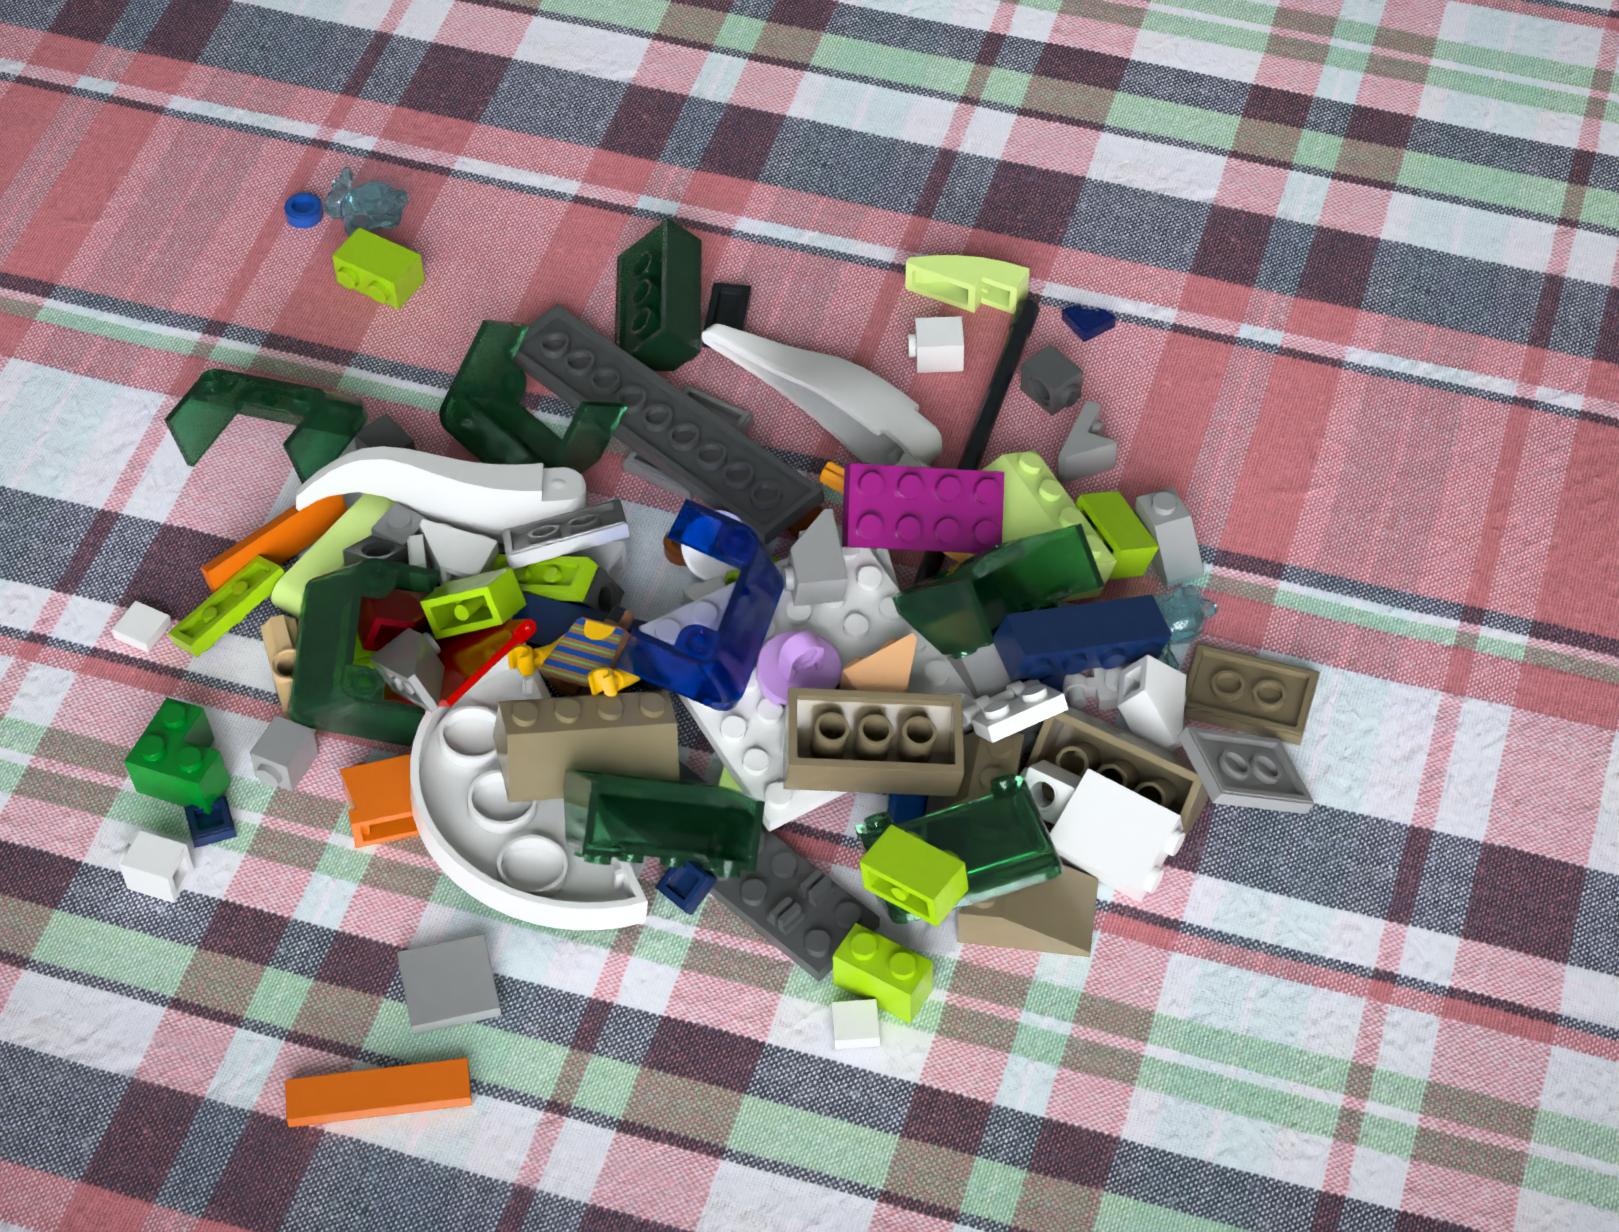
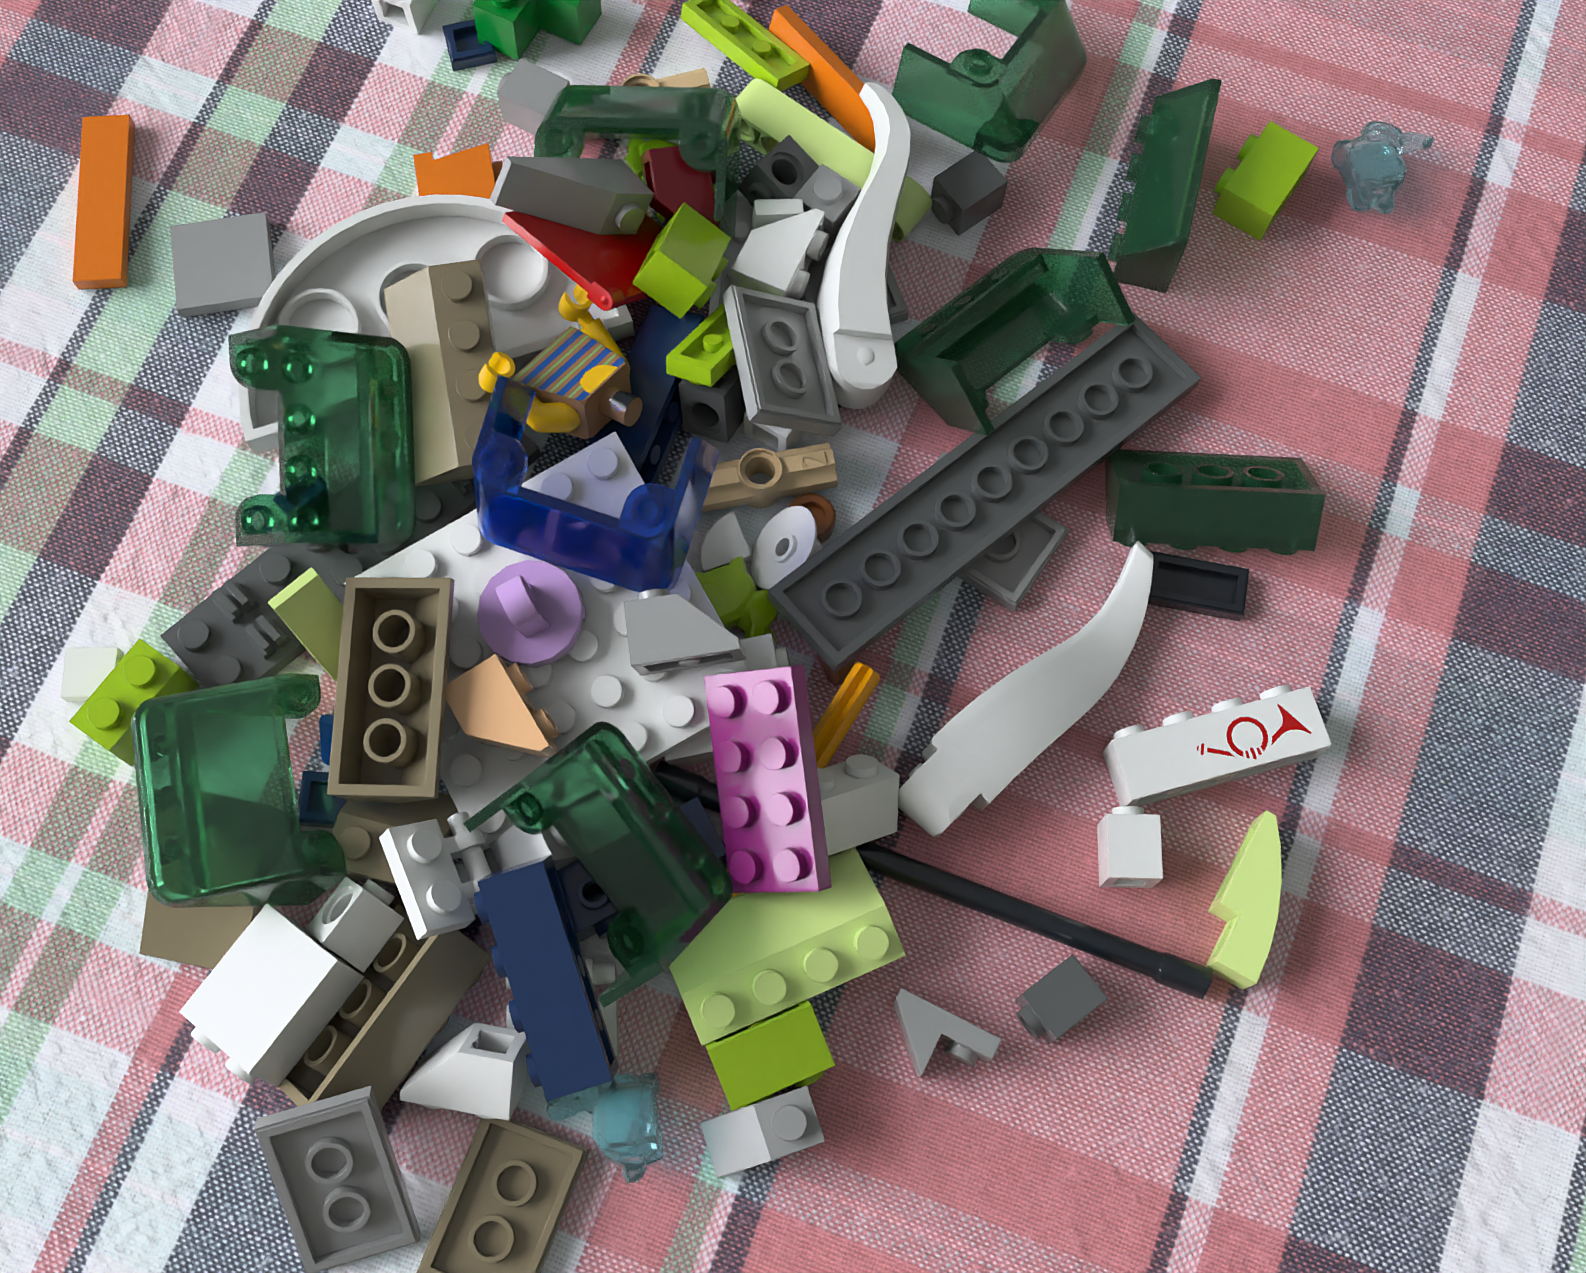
camera: 90 degrees right, 20 degrees up
(303, 210) = (1371, 103): blue tile -> none
(389, 317) = (1164, 186): none -> clear green slope
(652, 566) = (791, 472): none -> tan piece
(818, 826) = (313, 617): none -> yellowish green slope
(857, 299) = (1216, 746): none -> white brick
(914, 874) = (163, 715): lime brick -> none
(1087, 322) = (1184, 1068): clear blue tile -> none

